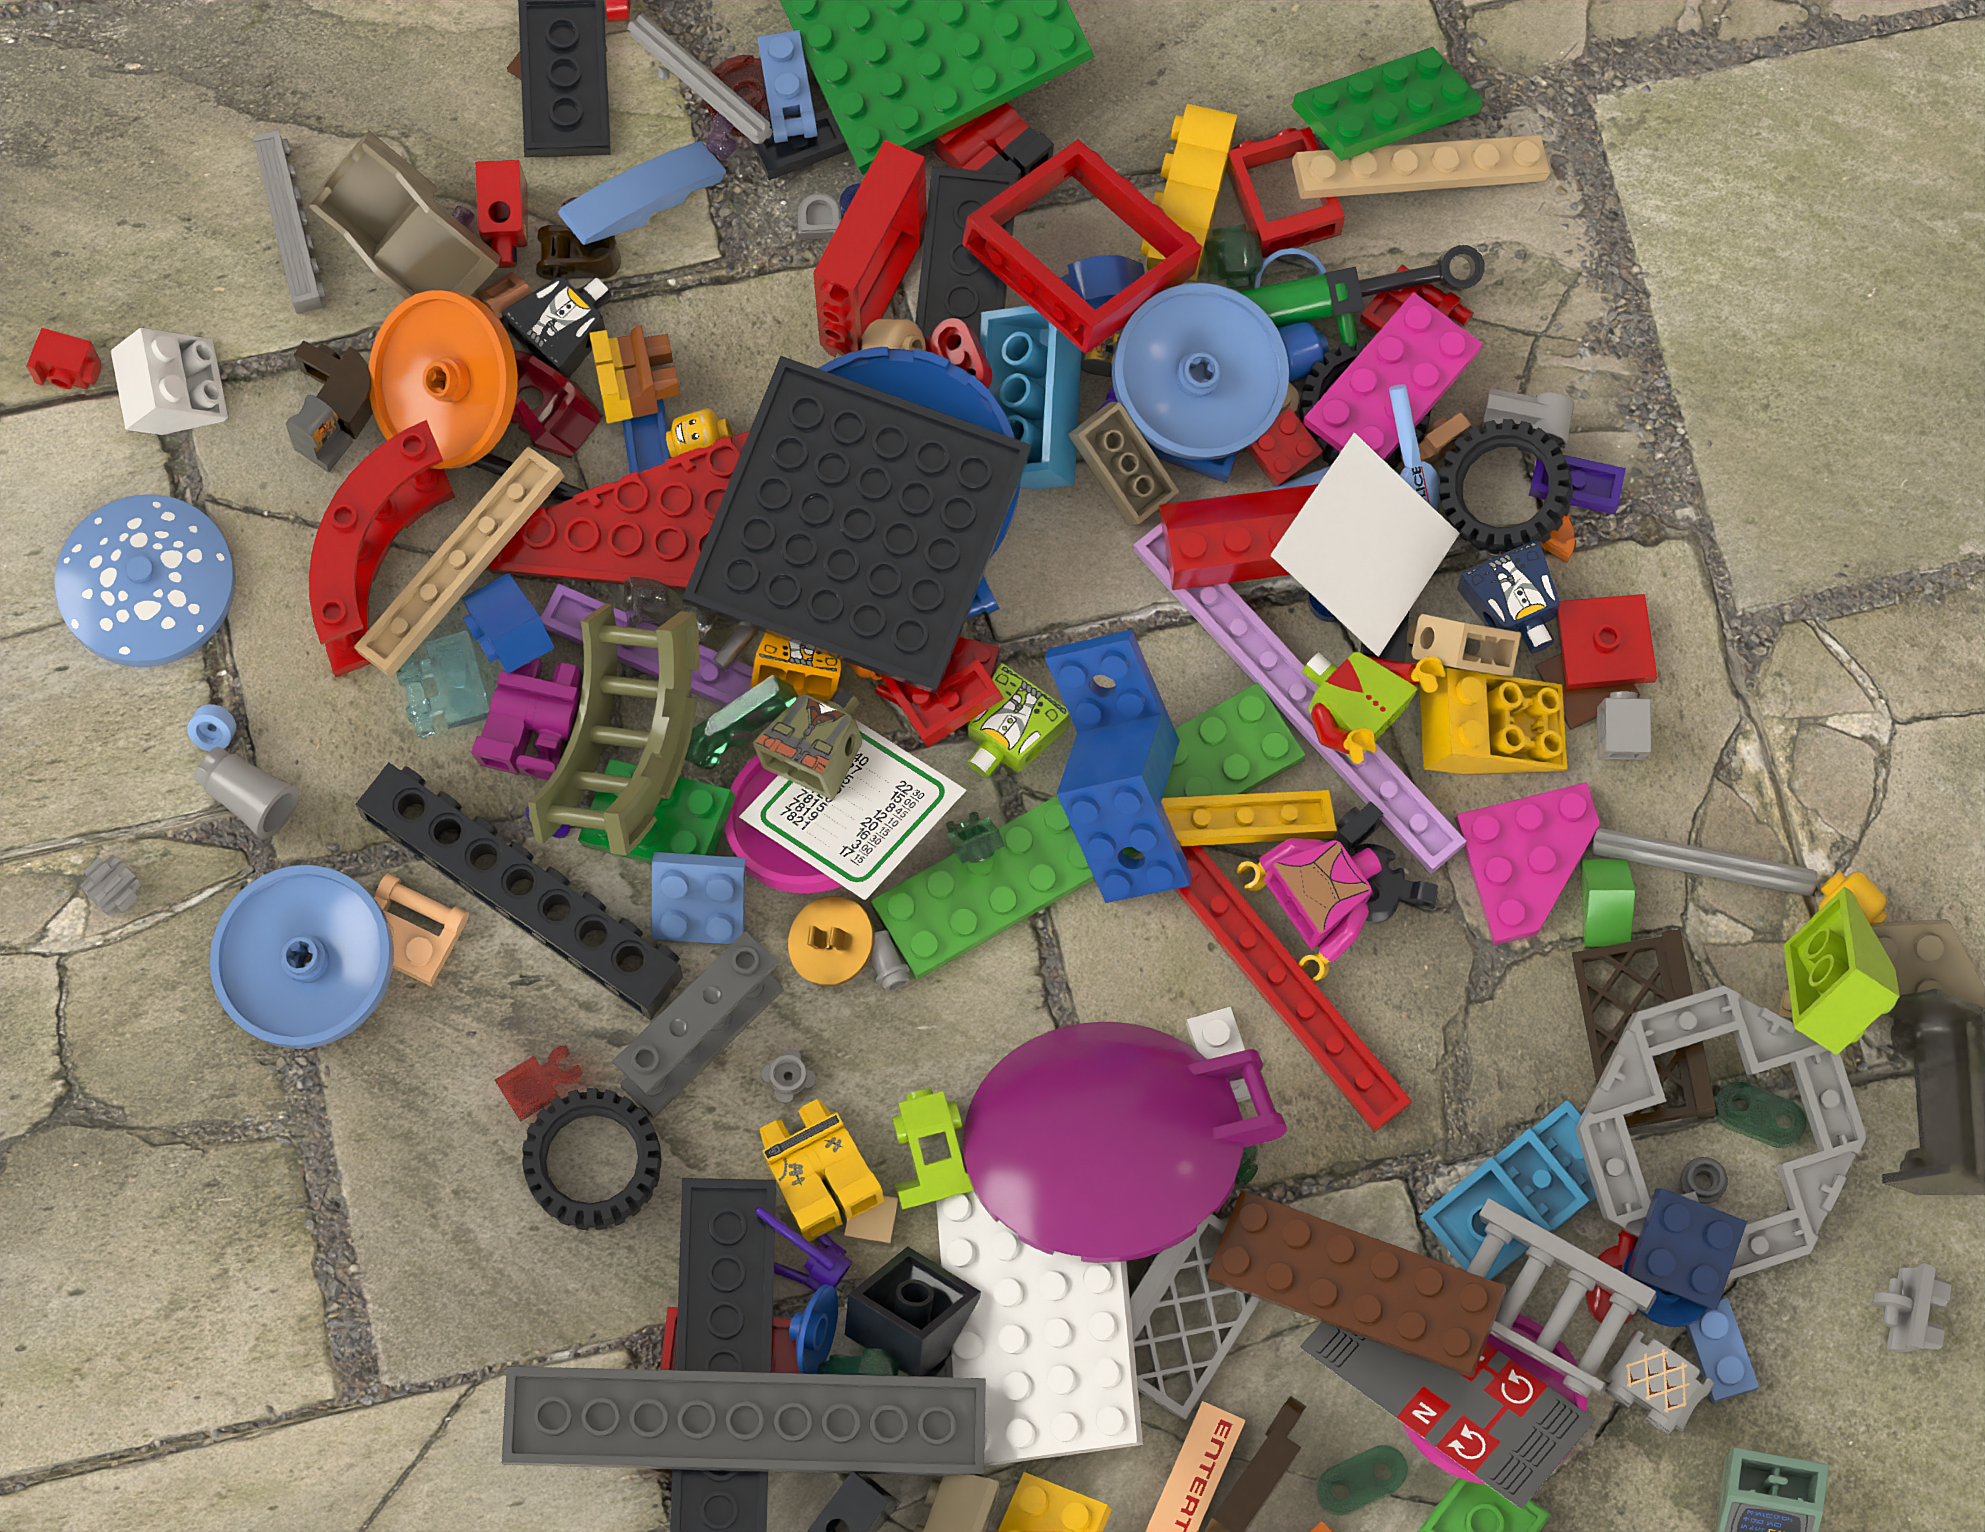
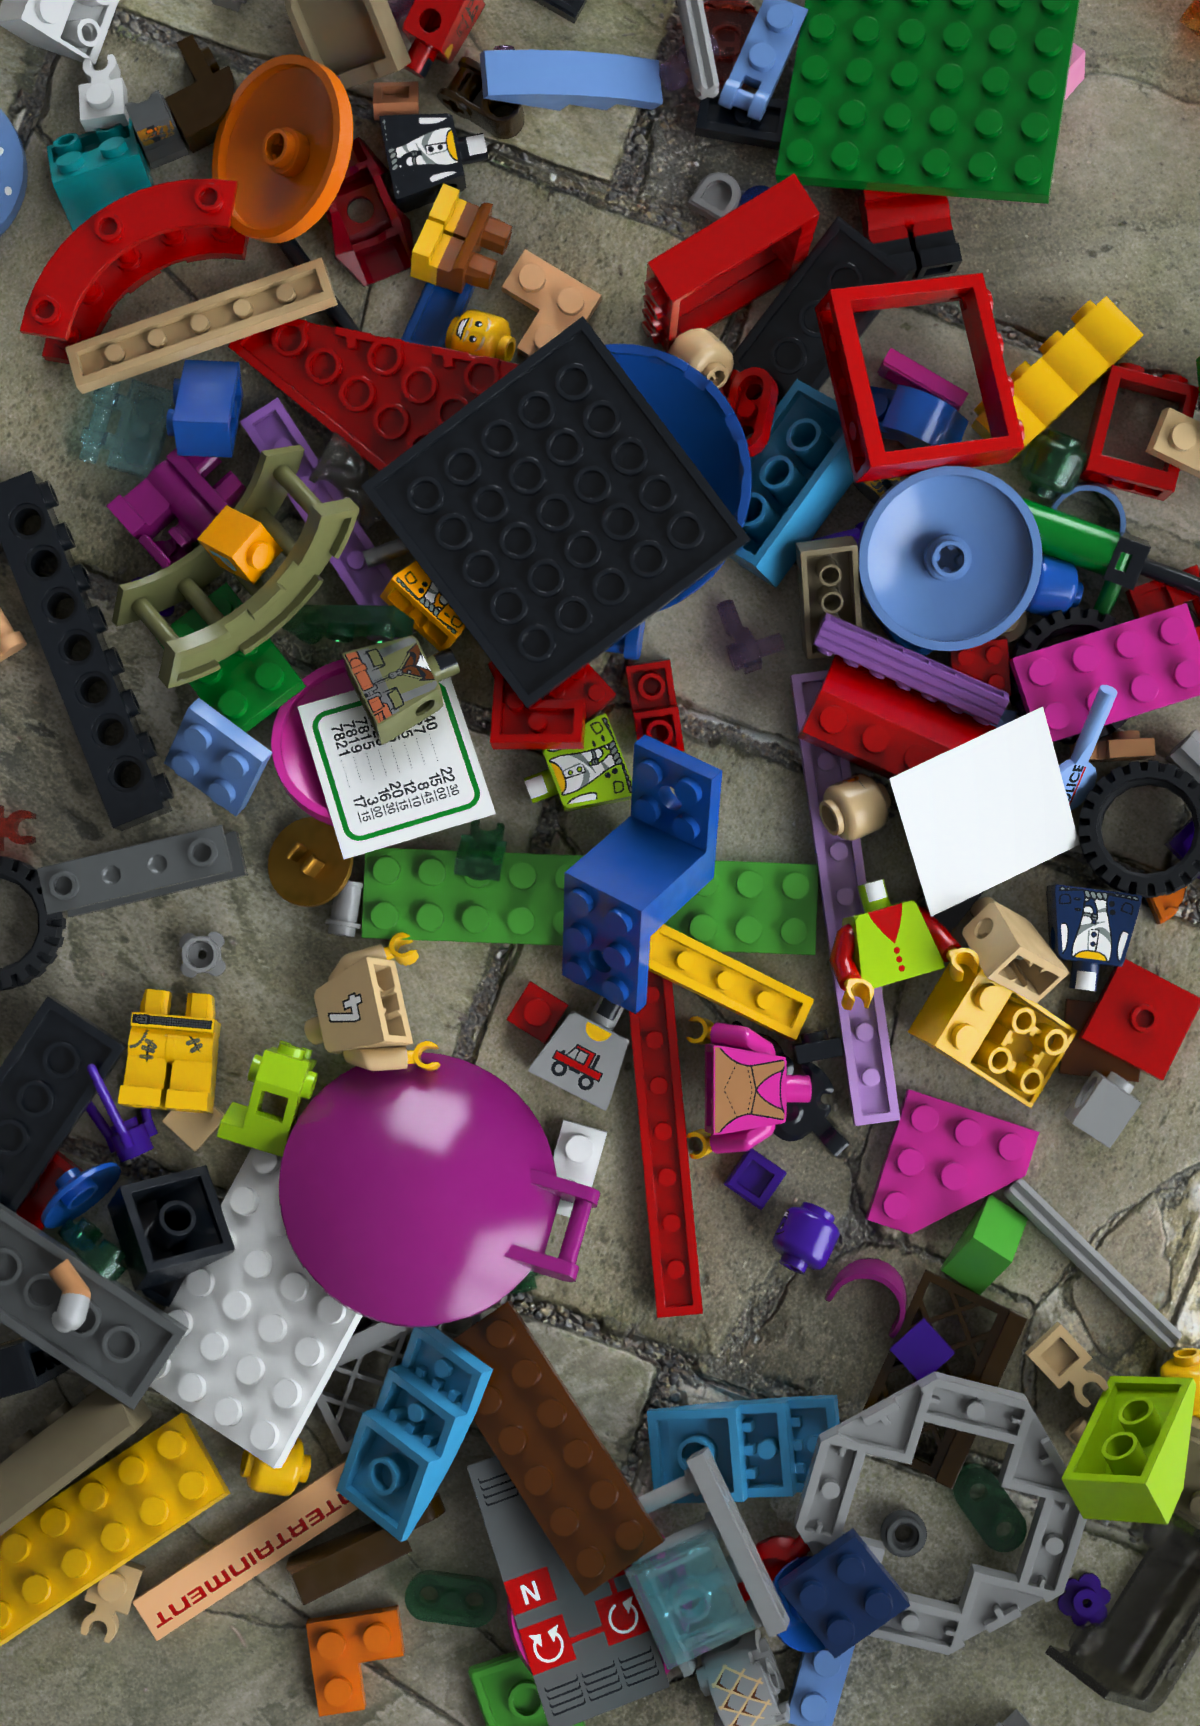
camera: 30 degrees right, 15 degrees up
(255, 436) = (103, 97): none -> white plate
(288, 495) = (96, 170): none -> teal slope
(609, 709) = (240, 544): none -> light orange brick
(734, 371) = (551, 294): none -> light nougat plate
(873, 1405) = (74, 1298): none -> arm
(962, 1028) = (365, 1010): none -> tan torso
(1029, 636) = (654, 702): none -> red slope
(1060, 254) = (904, 371): none -> dark pink tile
(1082, 549) = (745, 650): none -> clear purple piece
(1105, 947) = (537, 1012): none -> red plate
(1135, 1466) = (276, 1481): none -> yellow head
(1170, 953) = (585, 1054): none -> light grey torso
(1228, 477) = (910, 670): none -> medium lavender piece
(1234, 1344) = (413, 1431): none -> dark azure slope
(1257, 611) = (854, 807): none -> tan head
(1379, 968) = (754, 1178): none -> dark purple tile
(1454, 985) = (805, 1238): none -> dark purple head
(1530, 977) = (874, 1270): none -> magenta helmet
(1557, 1311) = (689, 1599): none -> clear light blue brick
(1611, 1013) = (922, 1350): none -> dark purple tile
(1733, 953) = (1063, 1361): none -> tan plate
(1879, 1138) = (1086, 1587): none -> dark purple plant

